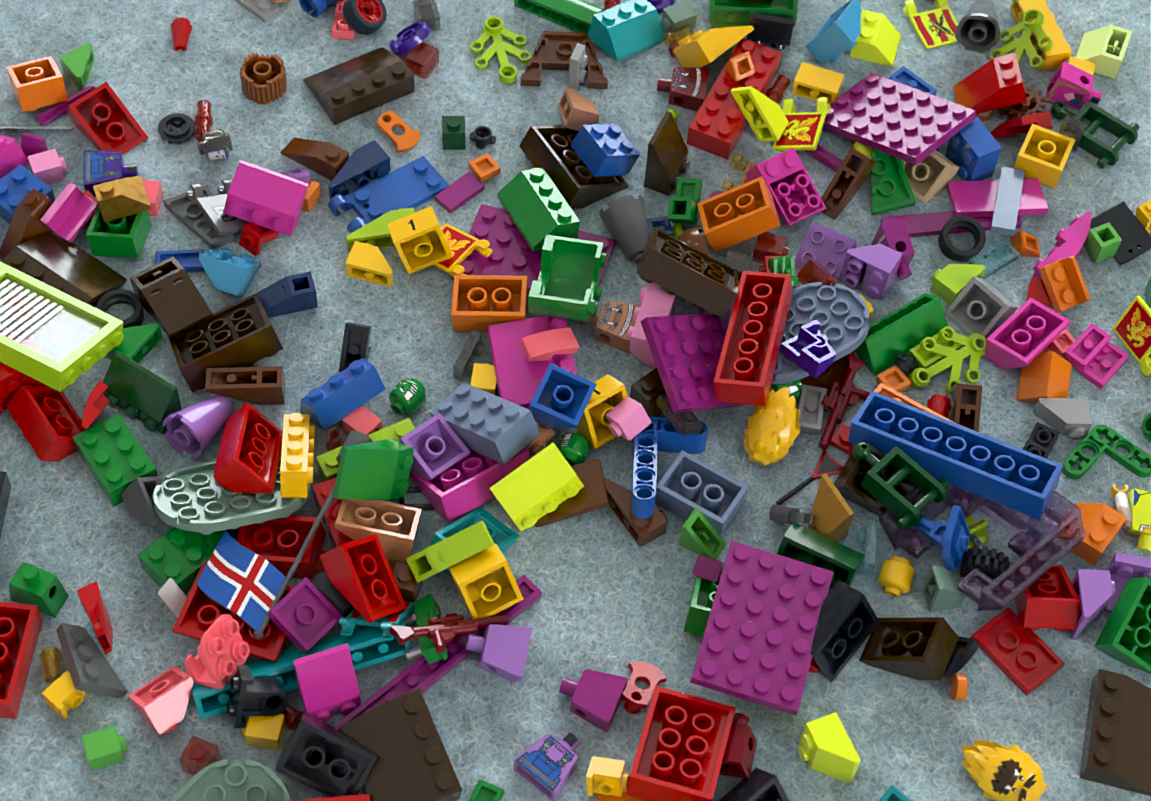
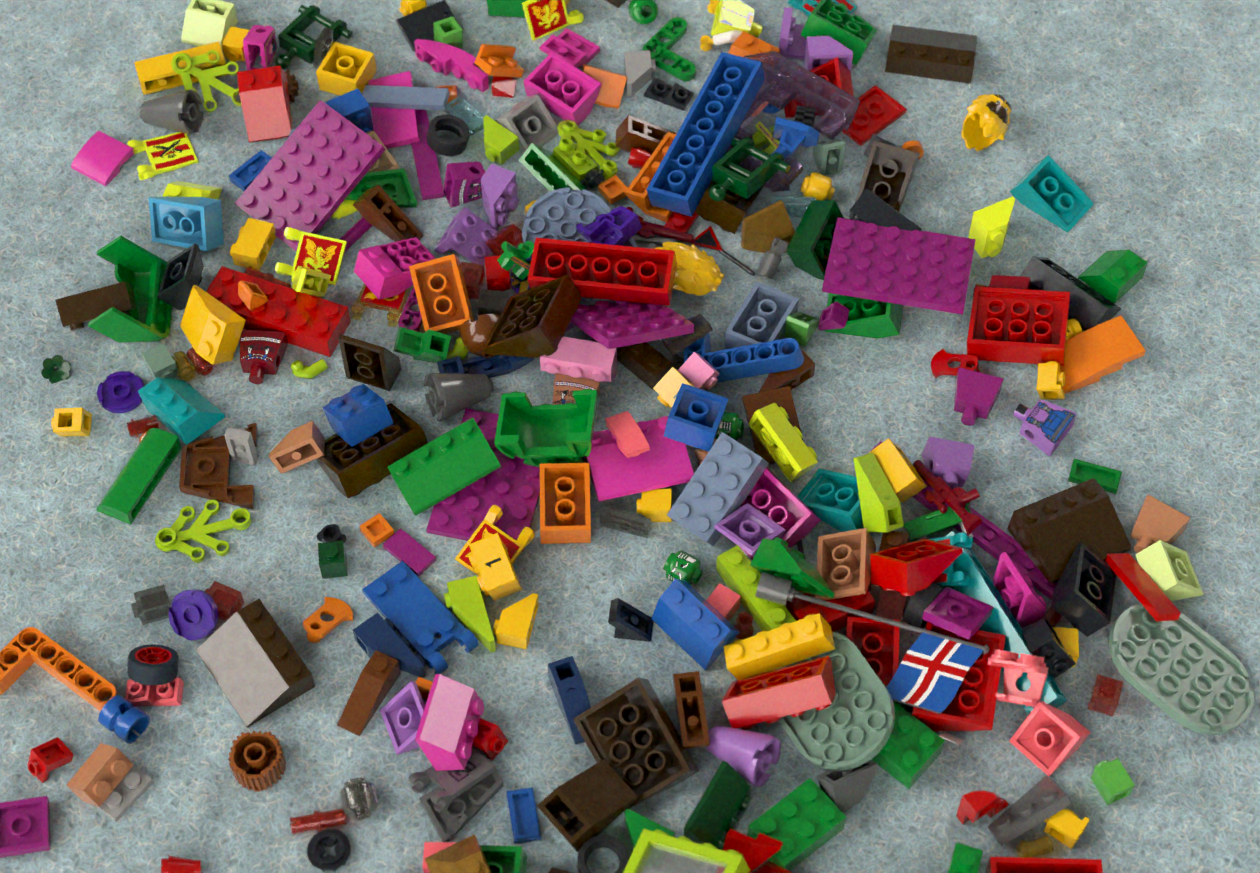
camera: 90 degrees left, 0 degrees up
(229, 271) = (537, 754): dark azure slope -> none
(1022, 124) = (308, 83): red slope -> none

